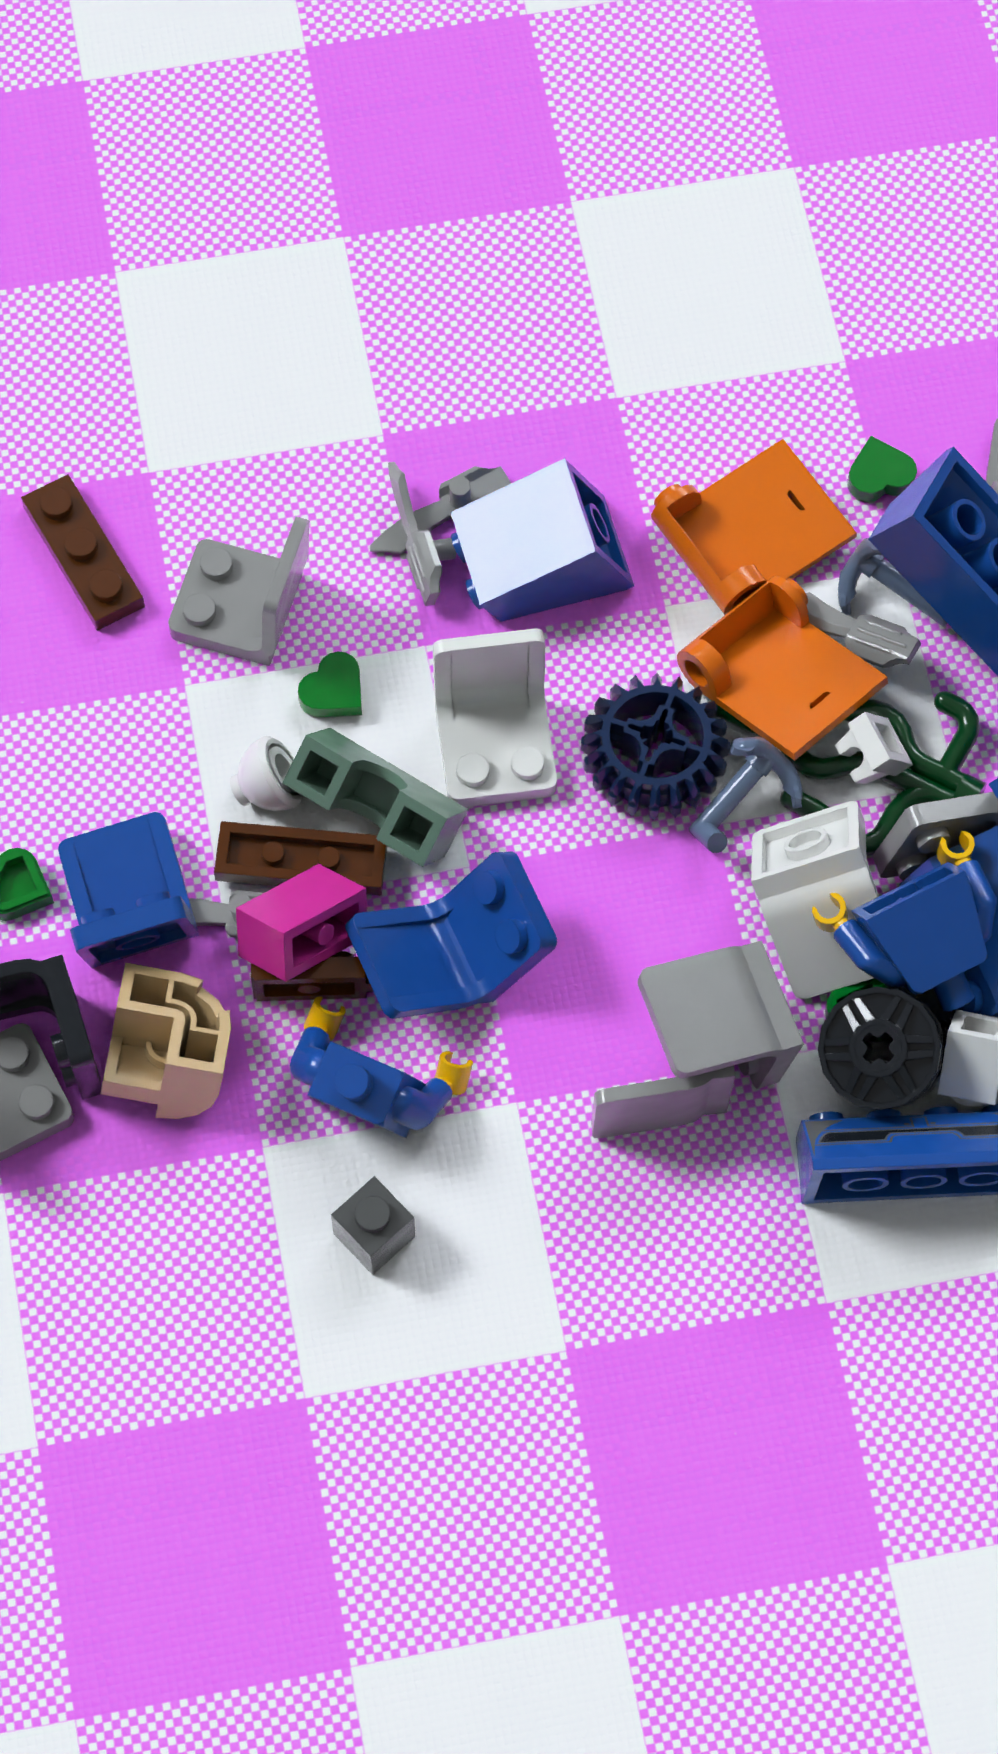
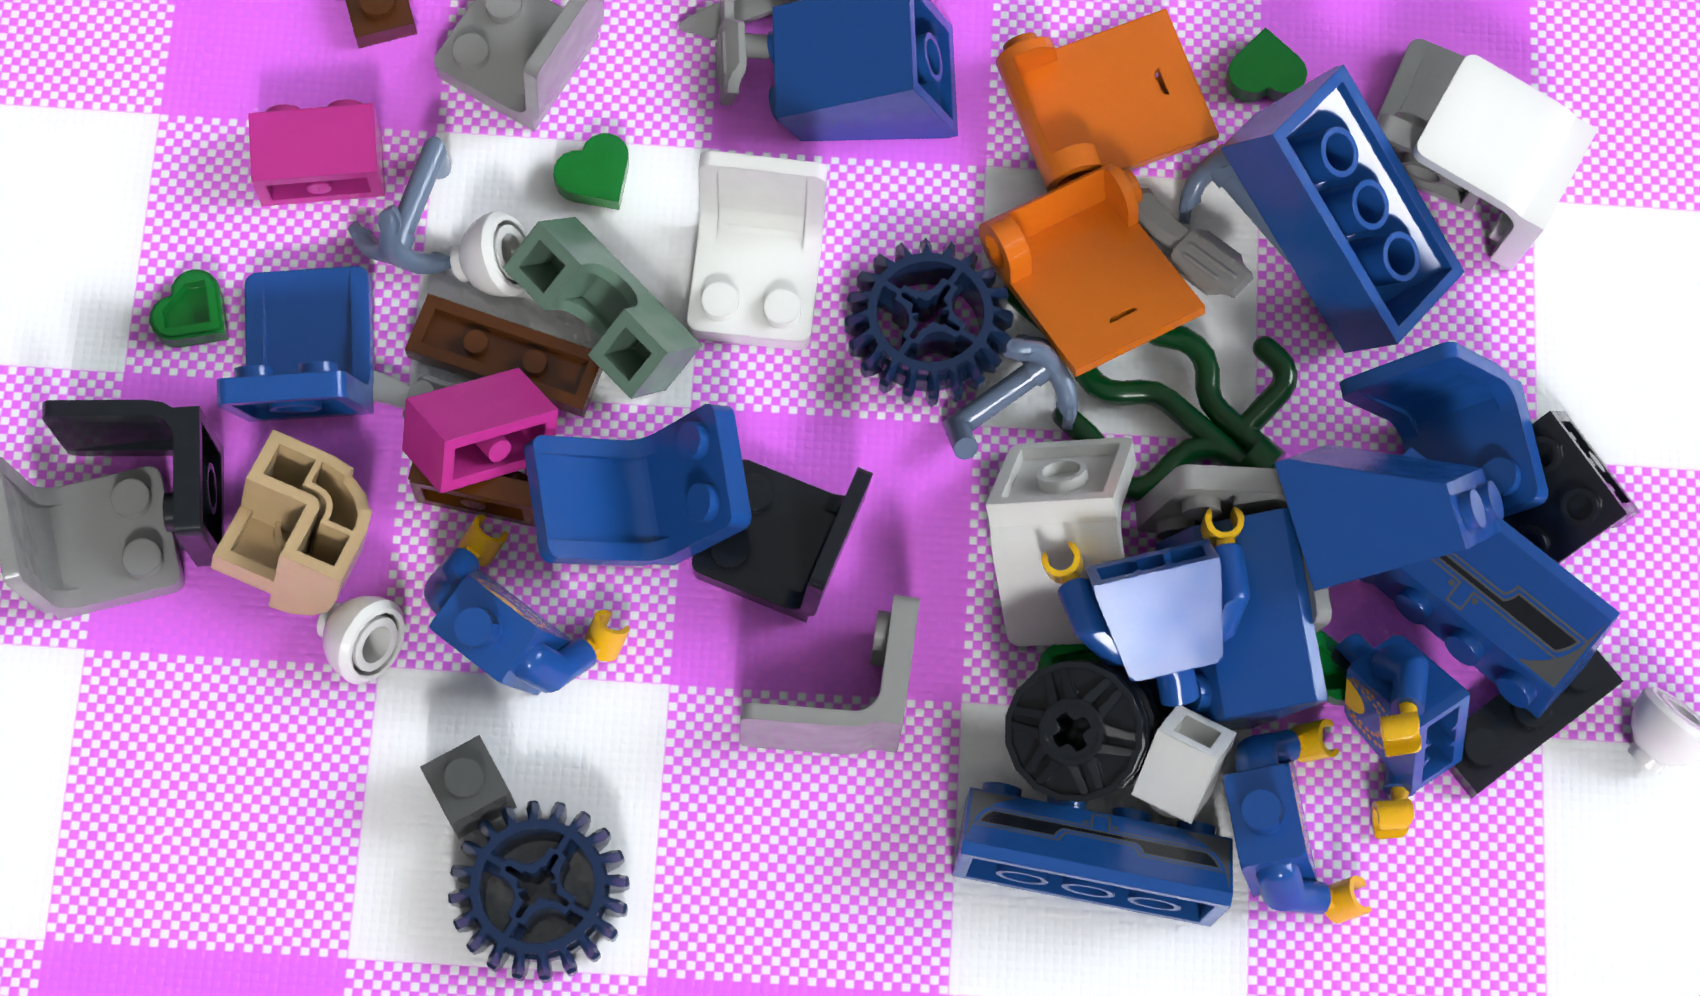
camera: 10 degrees right, 5 degrees up
(90, 725) = (316, 153): none -> dark pink brick
(182, 763) = (399, 224): none -> sand blue piece
(244, 1122) = (362, 637): none -> white brick
(437, 1288) = (524, 919): none -> dark blue gear
(594, 960) = (789, 544): none -> black piece
(722, 1014) = (906, 648): light grey piece -> none
(880, 748) = (1173, 381): white tile -> none

